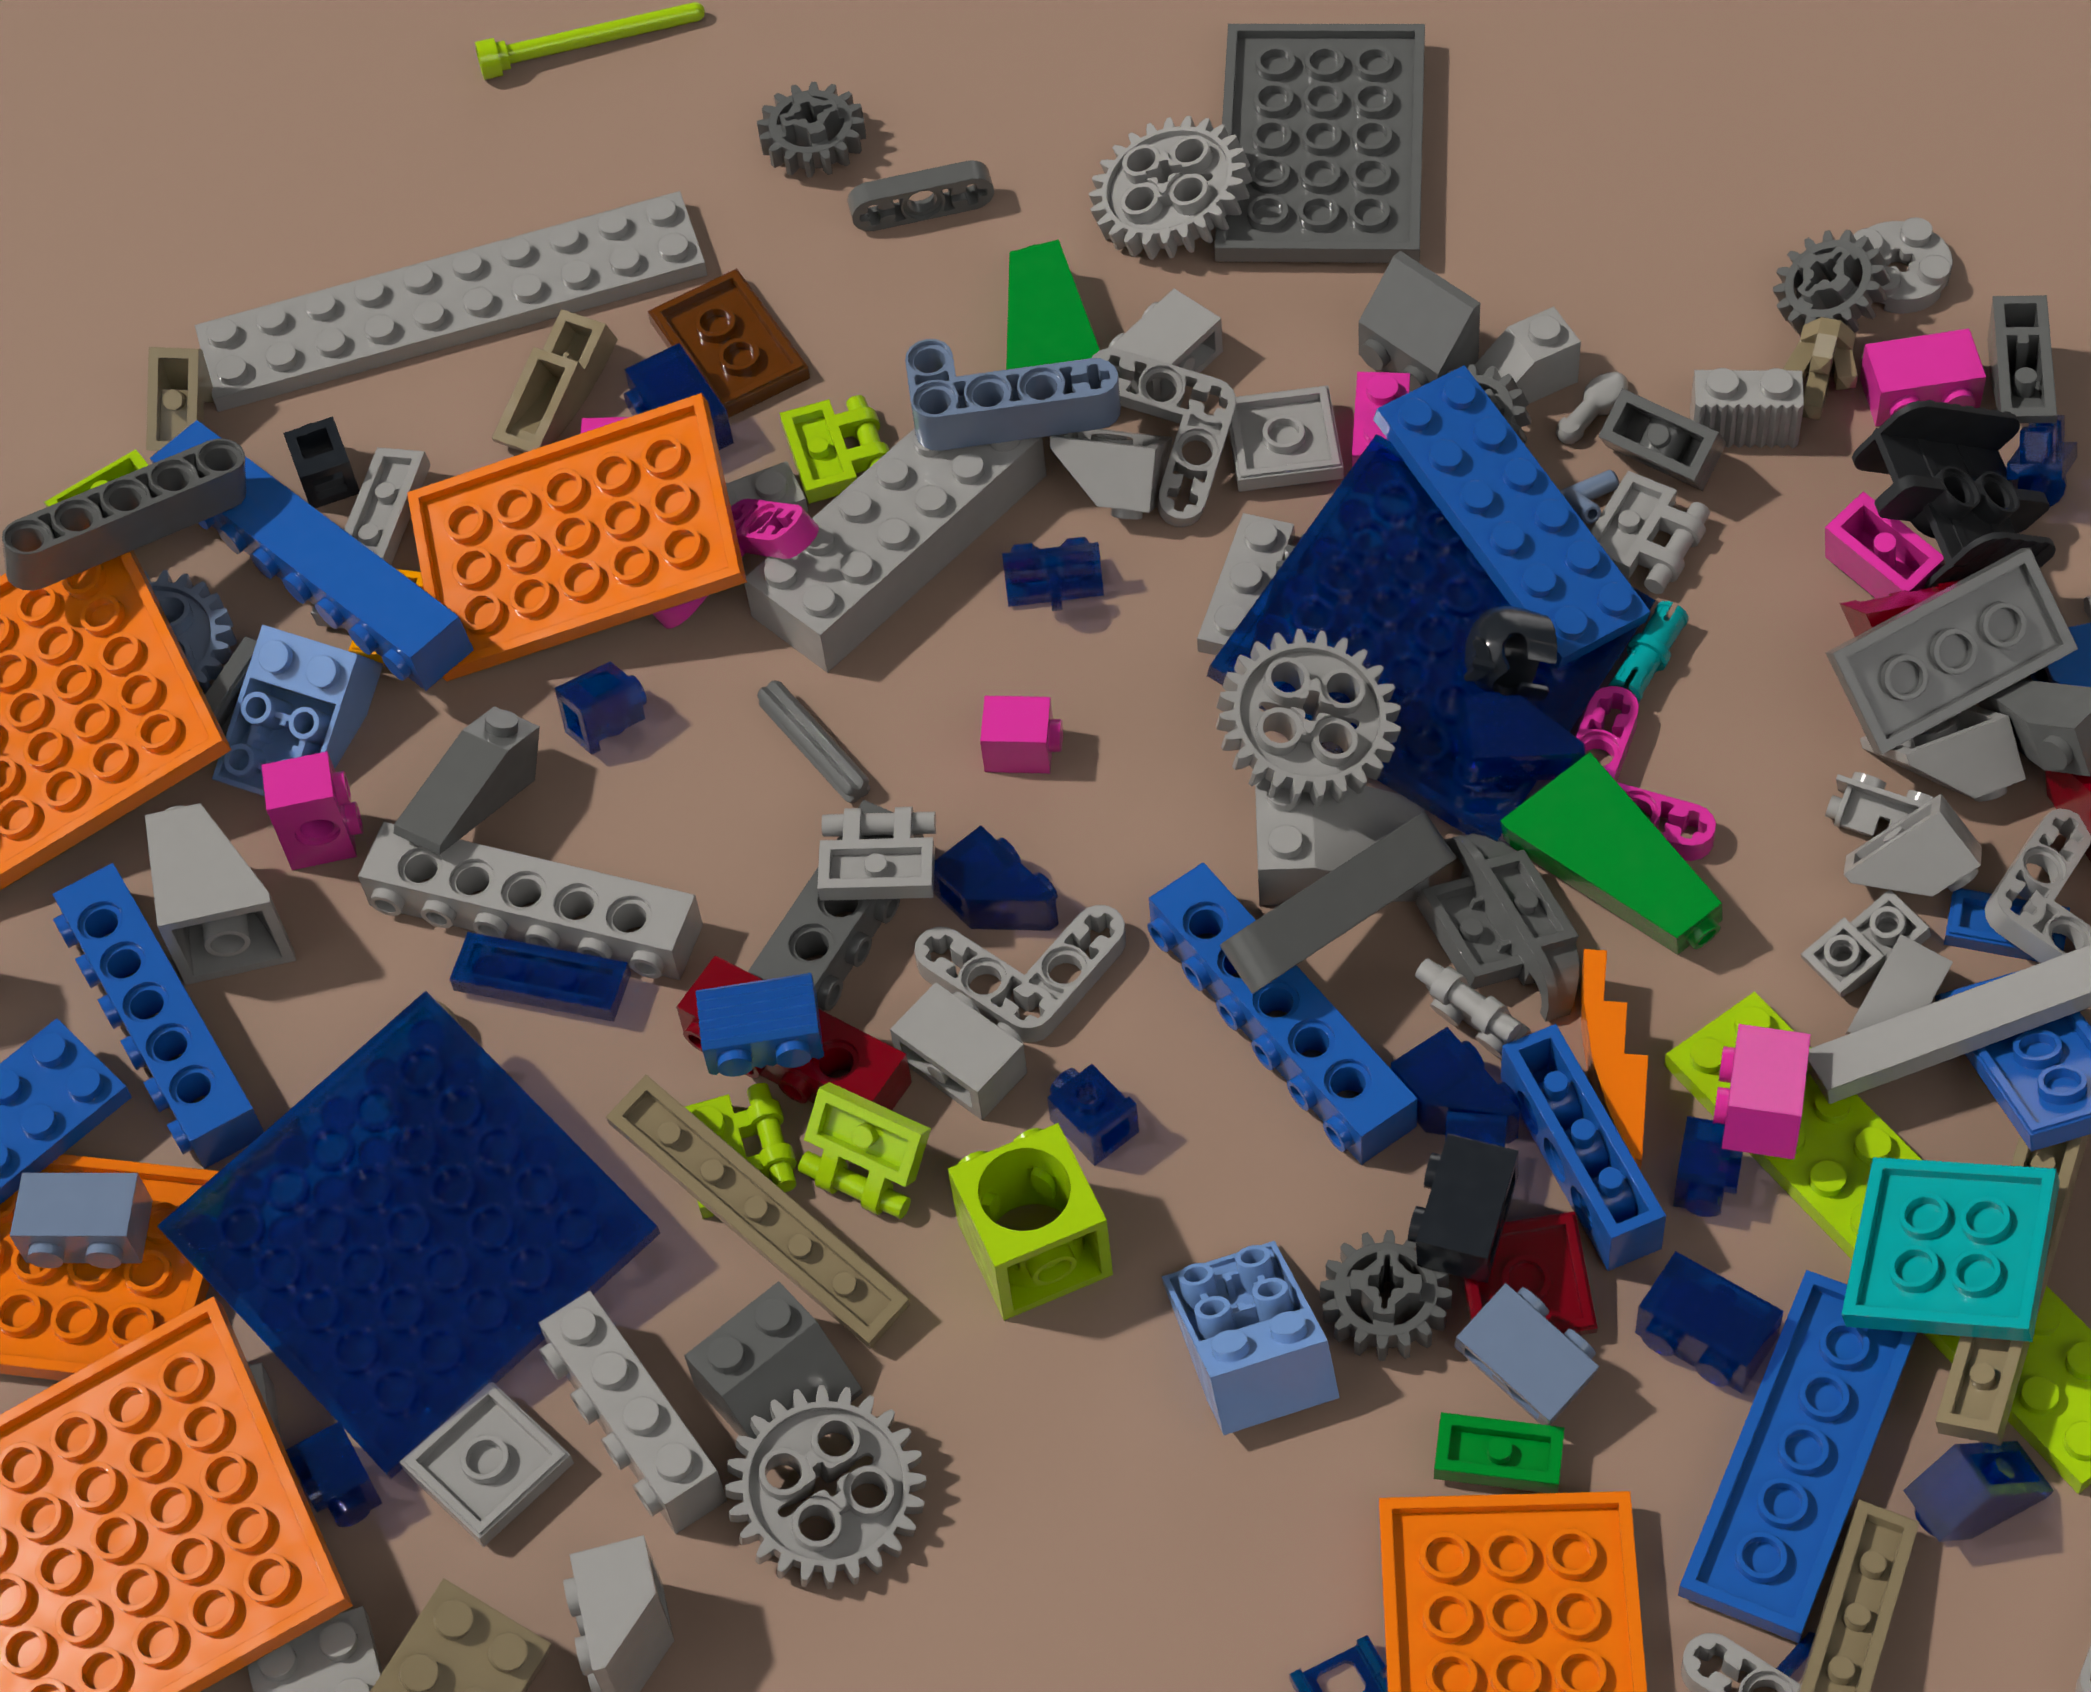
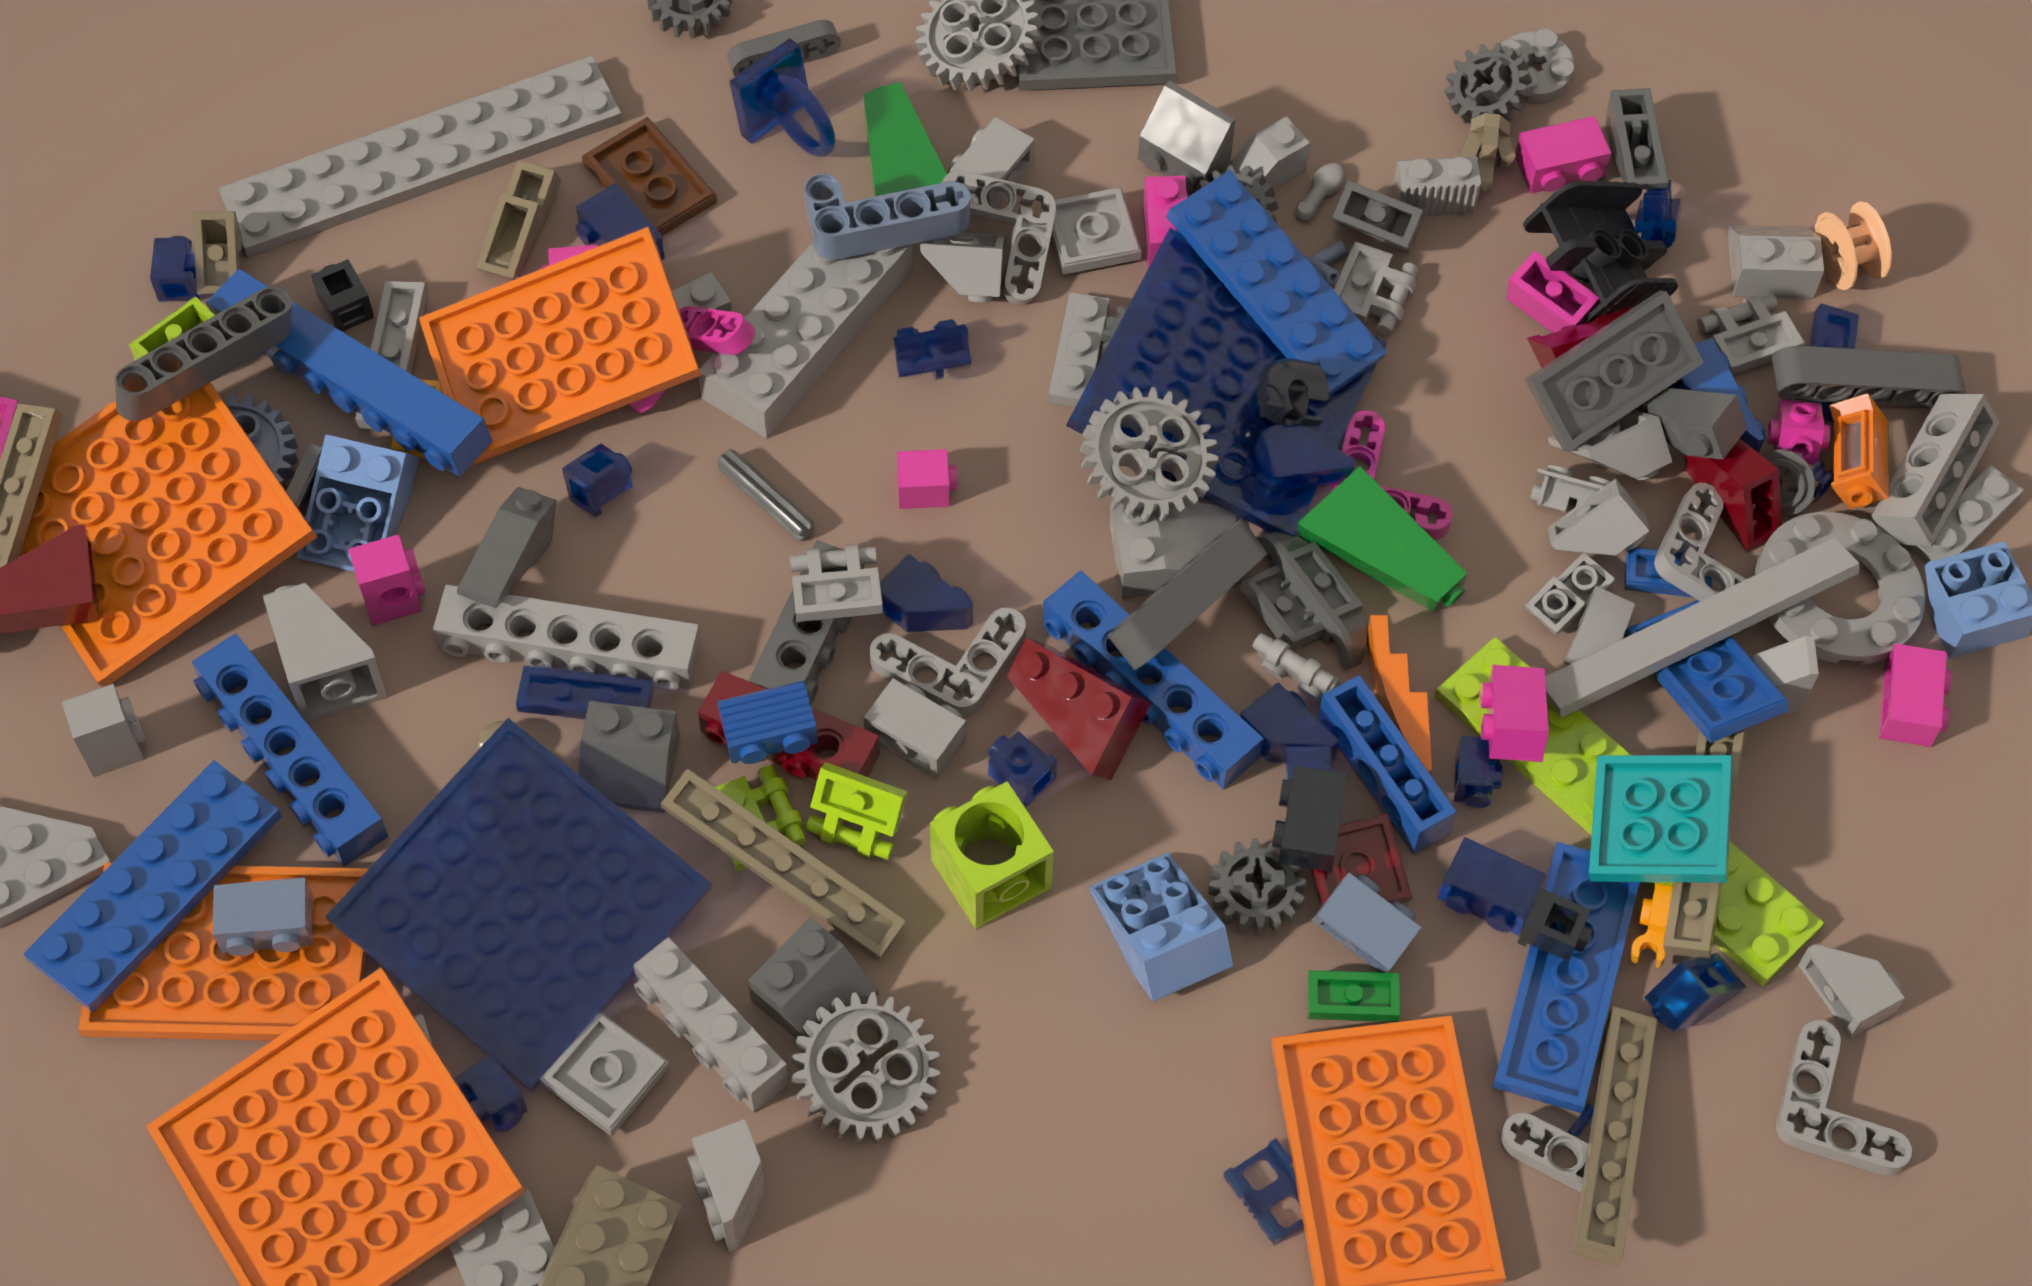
camera: 15 degrees left, 5 degrees up
(120, 418) = (173, 269): none -> clear blue brick
(582, 1052) = (629, 753): none -> dark grey slope
(819, 447) = (736, 262): lime plate -> none
(894, 245) = (770, 95): none -> clear blue tile
(1178, 1038) = (1080, 705): none -> dark red wedge
(1650, 649) = (1387, 379): teal pin -> none
(1781, 1364) = (1558, 913): none -> black brick
(1929, 1382) = (1655, 916): none -> light orange plate

